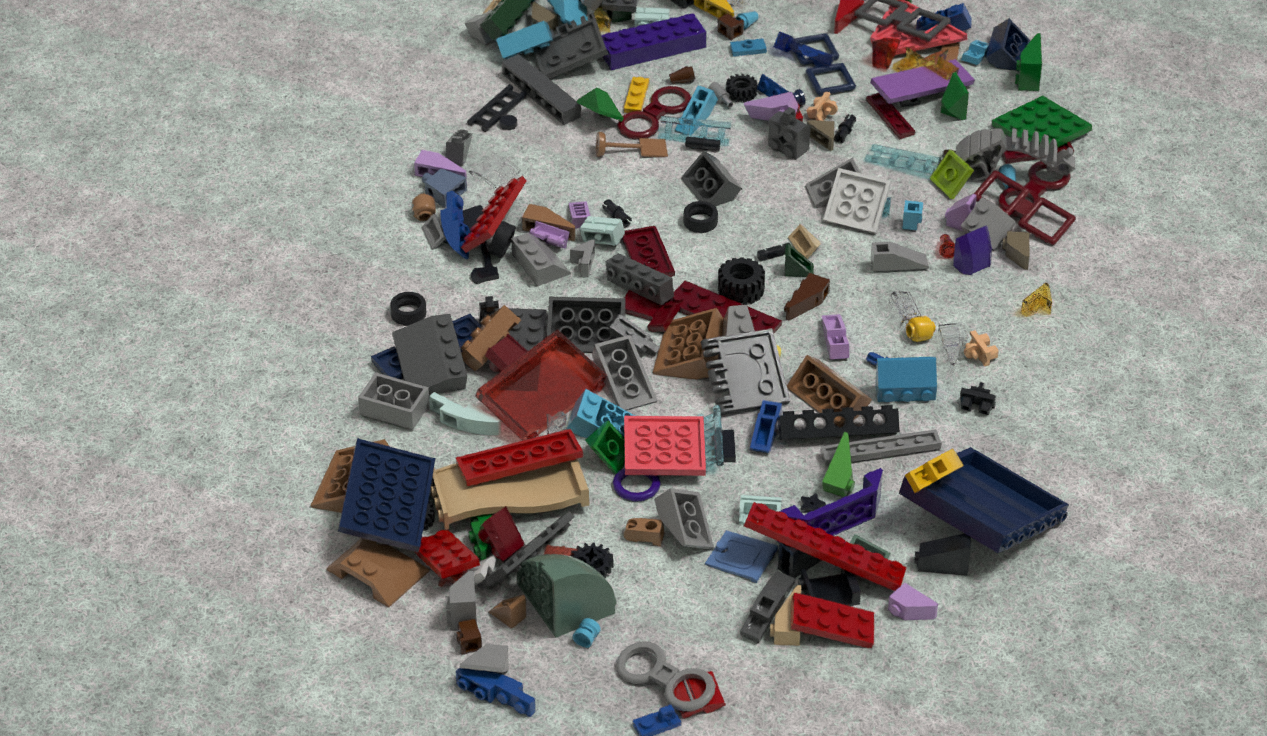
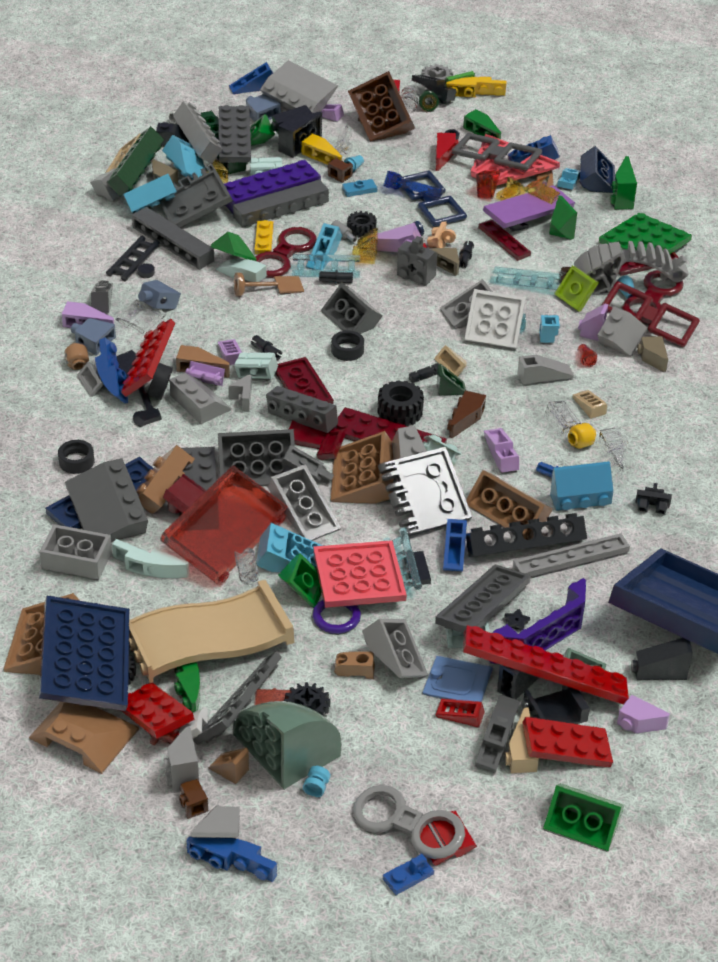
camera: 10 degrees left, 0 degrees up
(487, 307) = (160, 448): black hinge -> none
(501, 534) = (210, 683): dark red slope -> none
(510, 149) = (153, 293): none -> sand blue torso
(519, 457) = (215, 599): red plate -> none
(614, 129) = (252, 270): none -> light aqua slope
(660, 59) = (281, 203): none -> dark grey brick
(682, 75) = (305, 216): reddish brown cone -> none
(741, 114) = (367, 247): none -> clear yellow slope
(748, 590) = (474, 710): none -> red slope
(769, 87) = (388, 221): blue hinge -> none
(780, 332) = (434, 442): none -> light aqua hinge
(780, 479) = (483, 598): none -> dark grey plate
(832, 688) = (583, 816): none -> green slope
(839, 475) = (540, 586): bright green slope -> none
(934, 470) = (641, 576): yellow slope -> none
(939, 297) = (590, 403): none -> tan slope
(973, 251) = (614, 358): dark purple slope -> none
(978, 348) = (641, 450): light nougat hips -> none
(1038, 299) = (686, 399): clear yellow slope -> none

